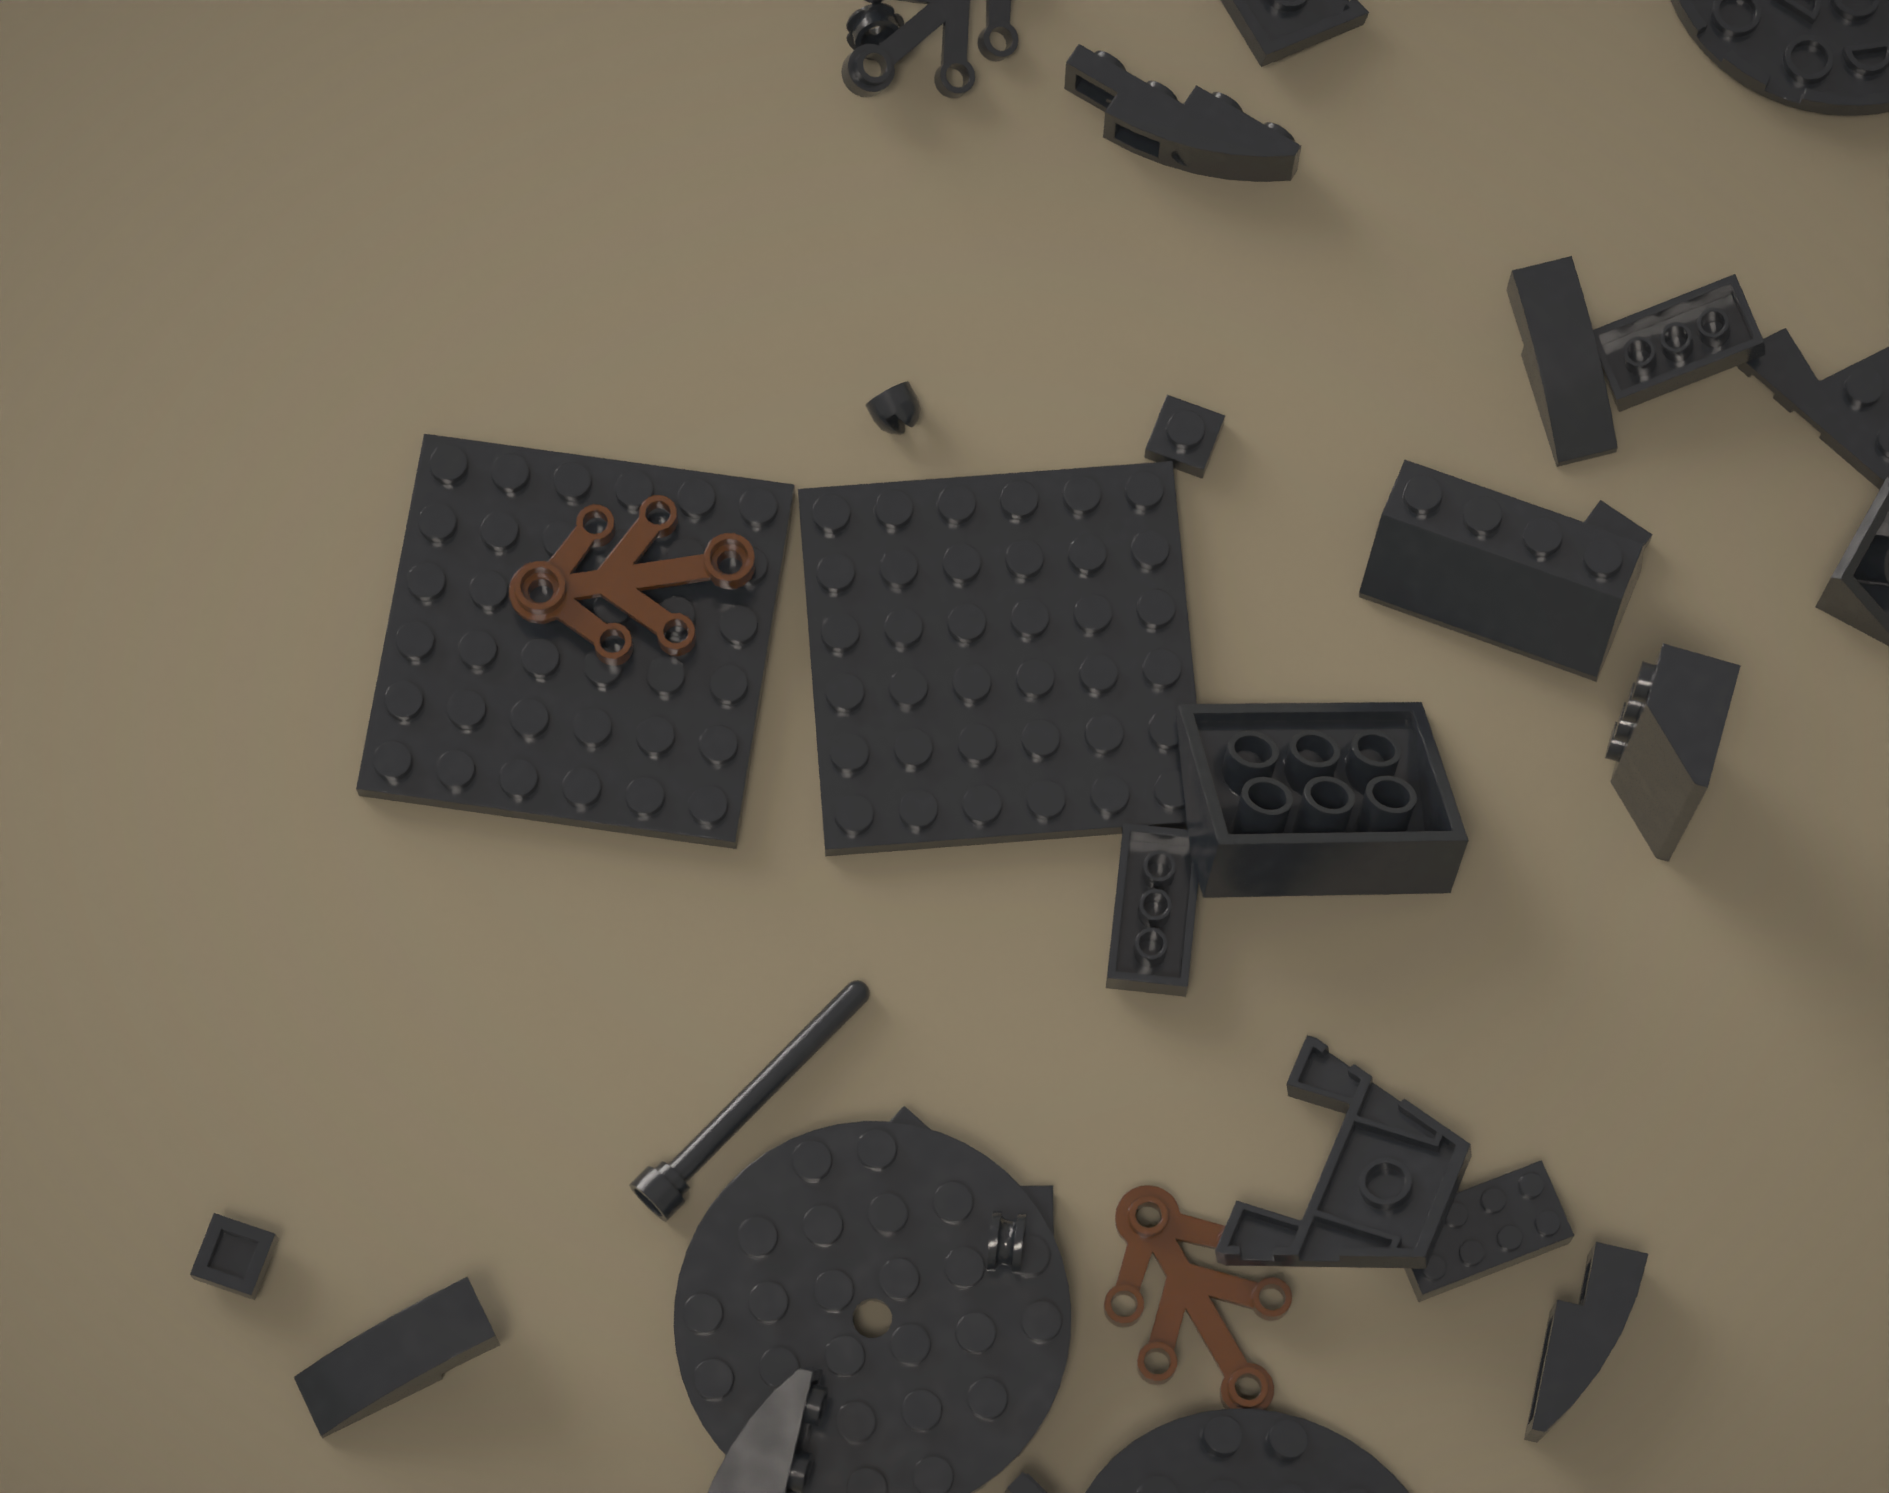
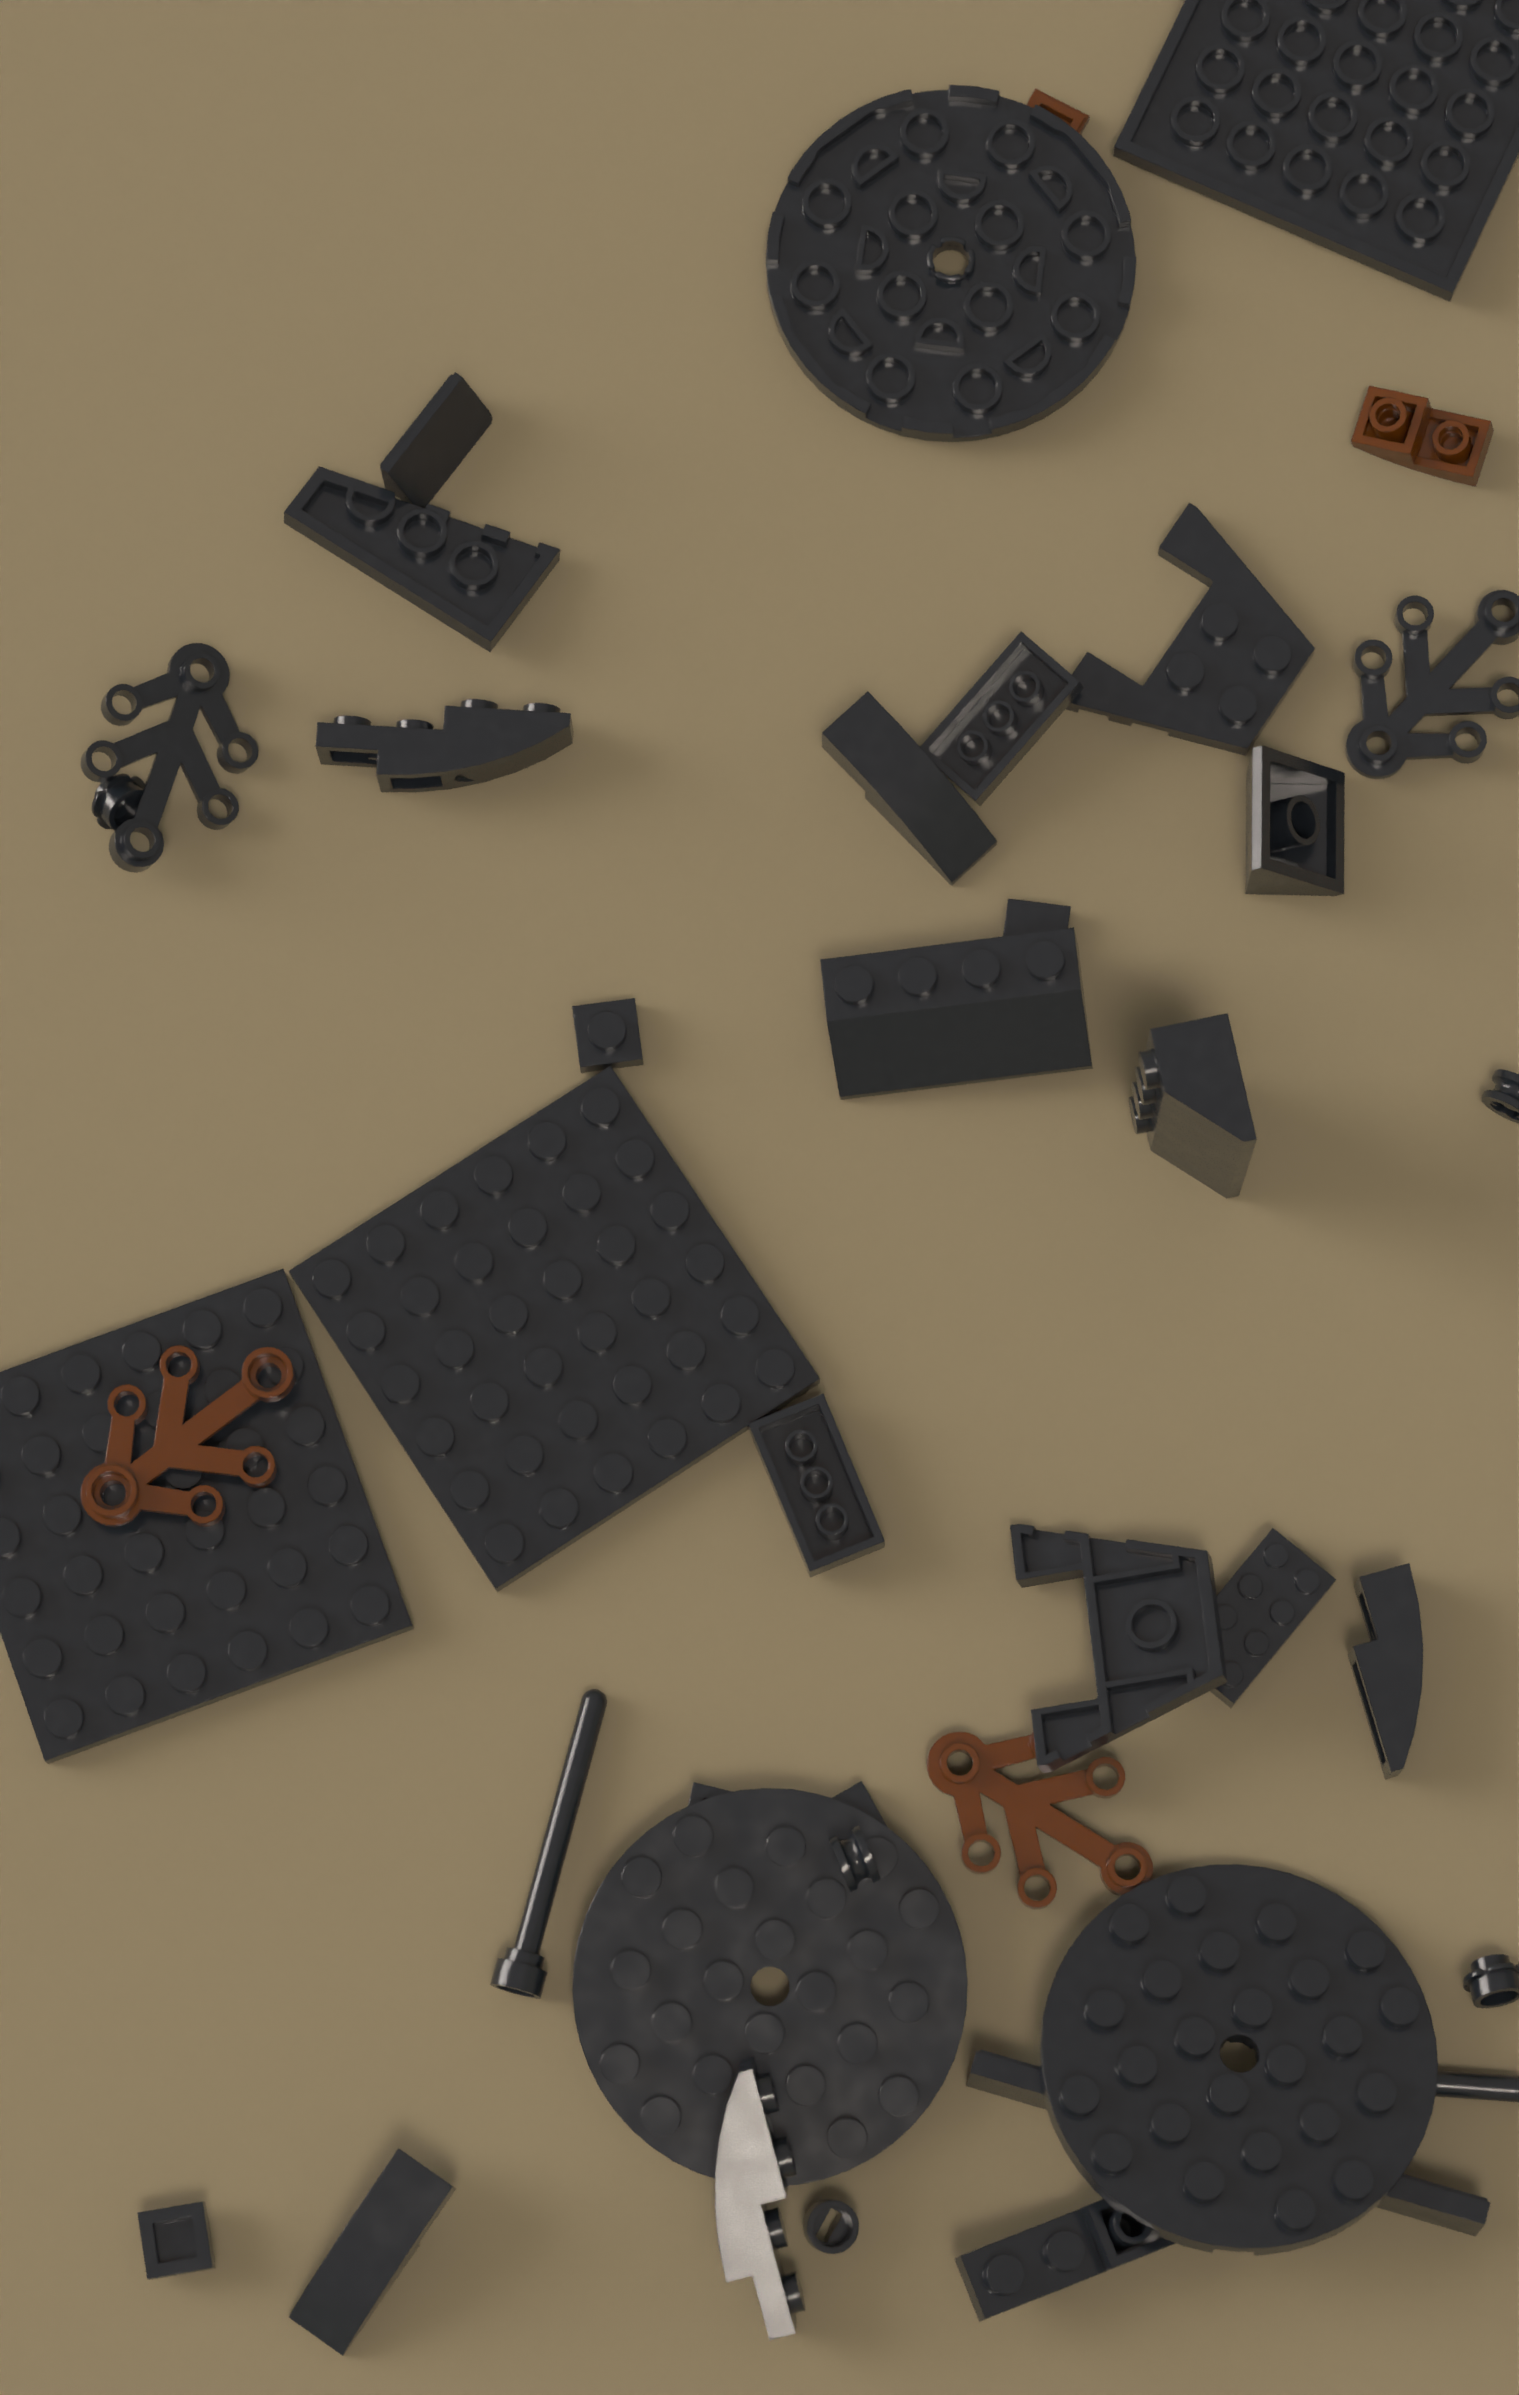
camera: 25 degrees left, 5 degrees up
(895, 408) = (336, 1150): black hinge -> none
(1317, 800) = (907, 1310): black slope -> none

